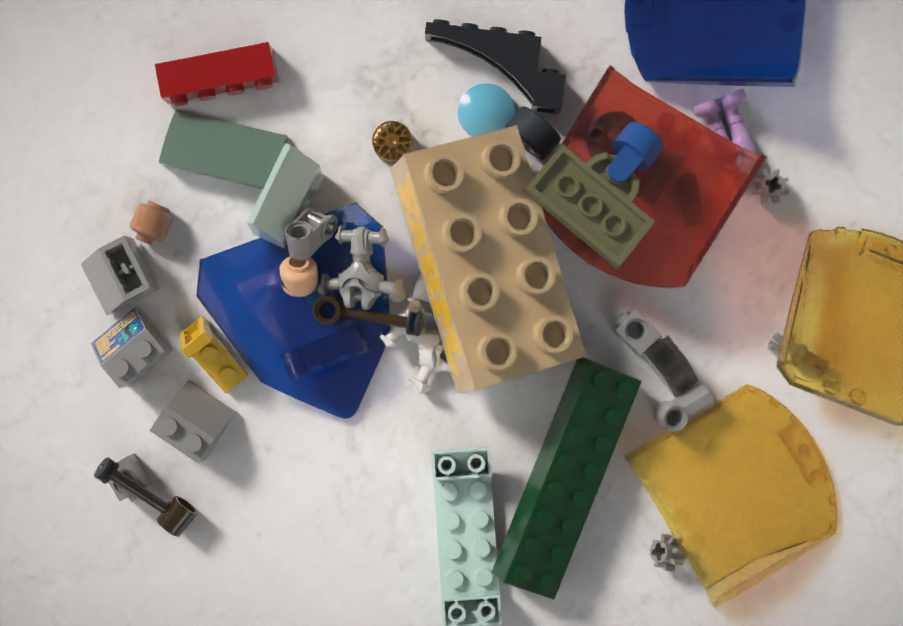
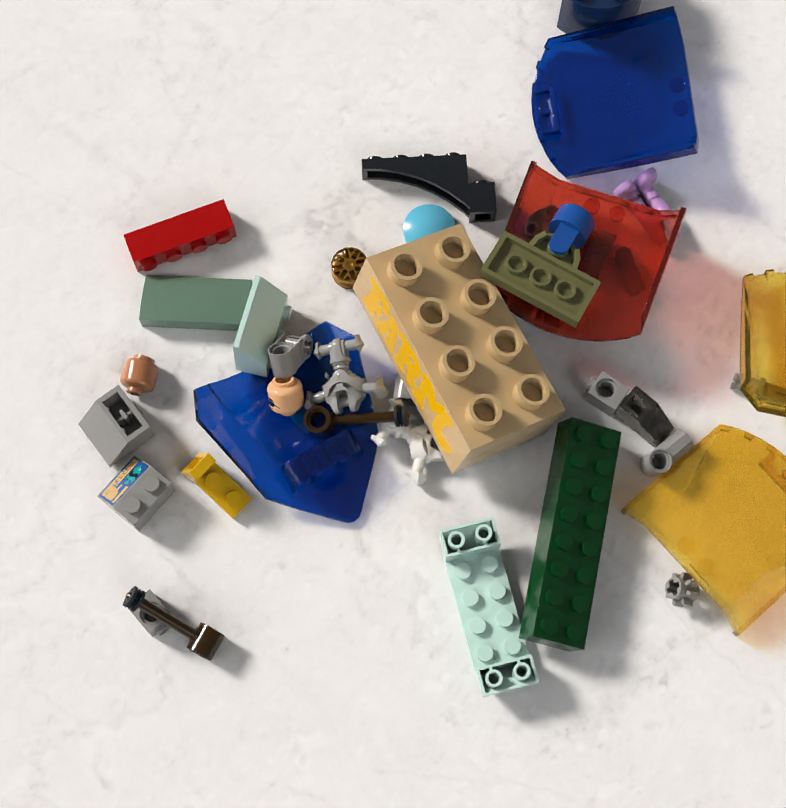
camera: 15 degrees left, 15 degrees down
(193, 421) = (207, 550): light grey slope -> none
(535, 132) = (480, 232): black wheel -> none
(778, 184) = (691, 243): light grey gear -> none

